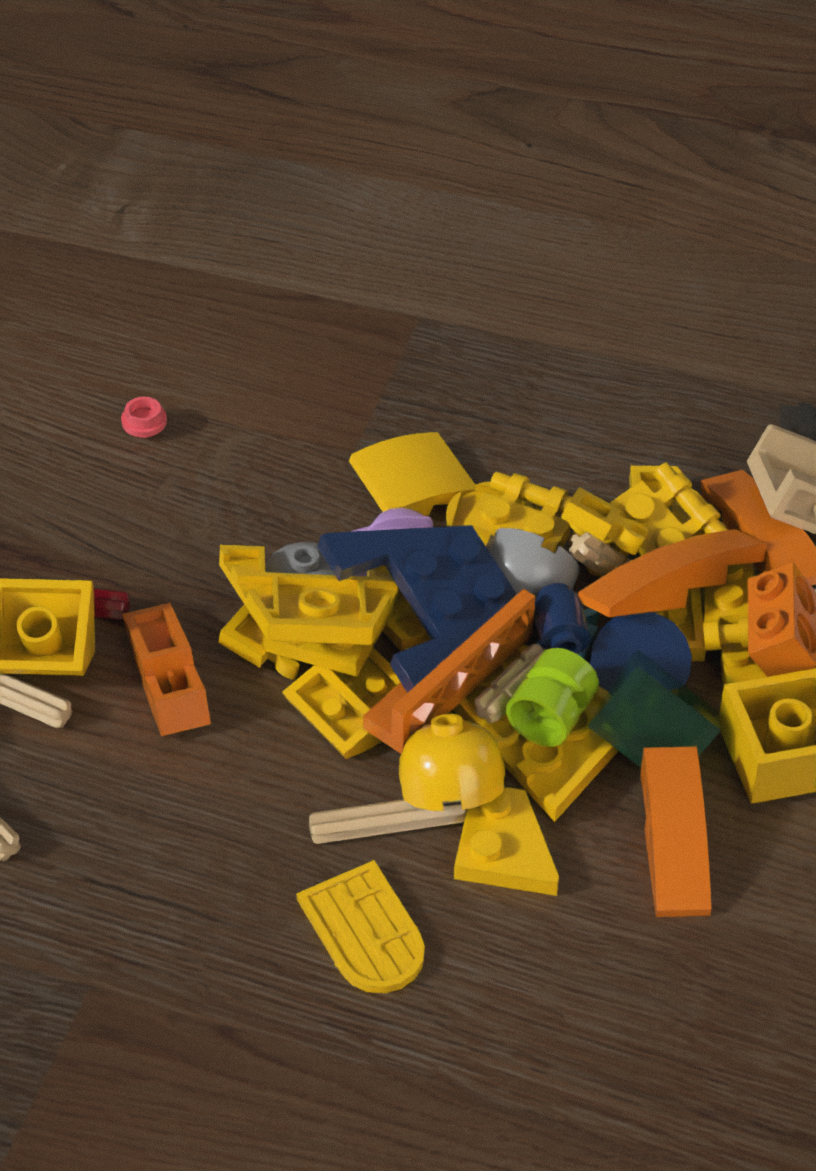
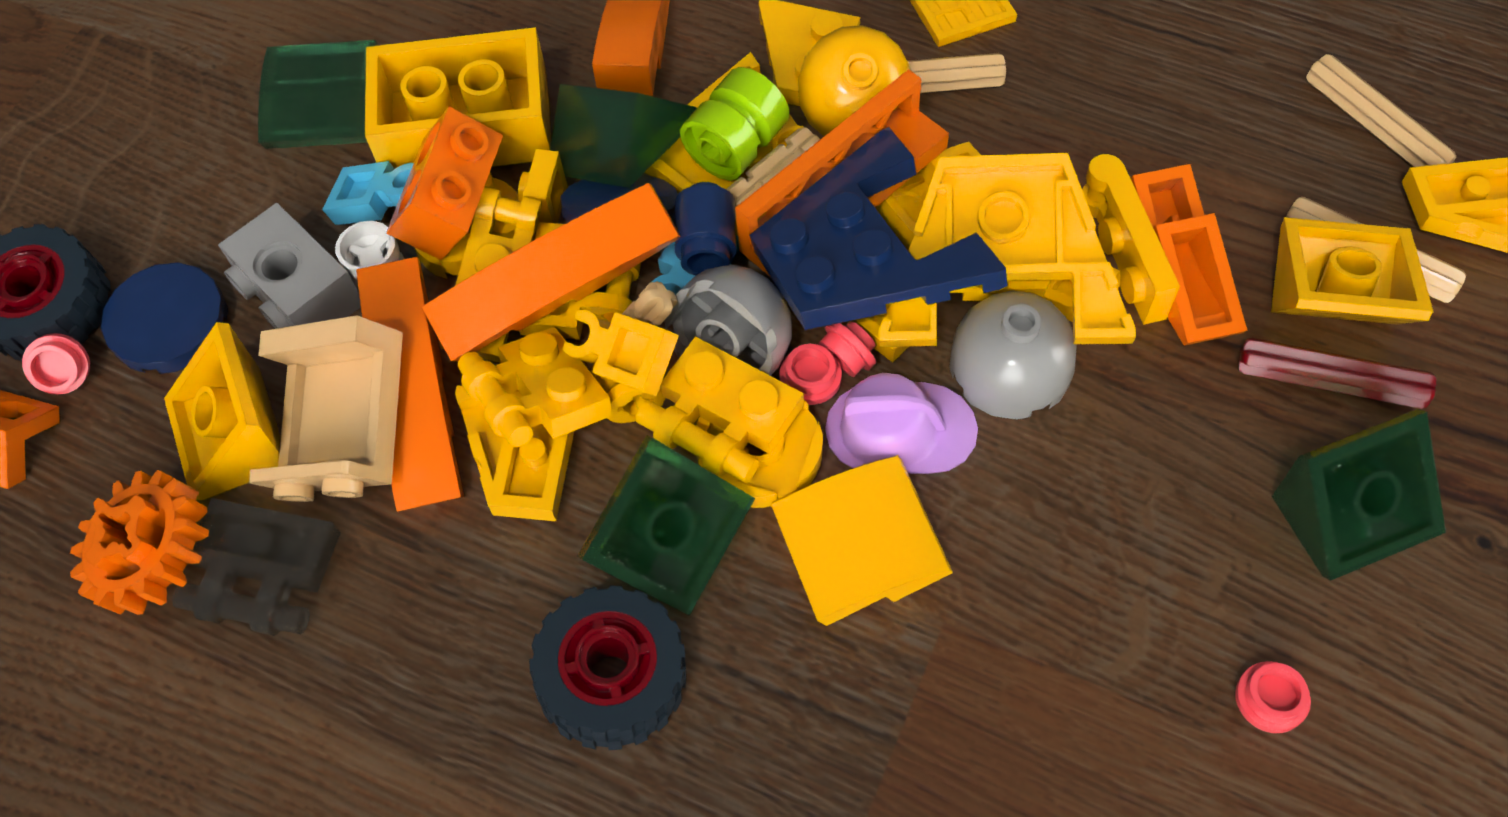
camera: 170 degrees left, 15 degrees up
(66, 521) = (1365, 495): none -> clear green slope
(222, 695) = (1130, 238): none -> yellow plate
(555, 453) = (666, 526): none -> clear green slope
(568, 398) = (614, 708): none -> black wheel
(712, 674) = (545, 183): none -> yellow plate

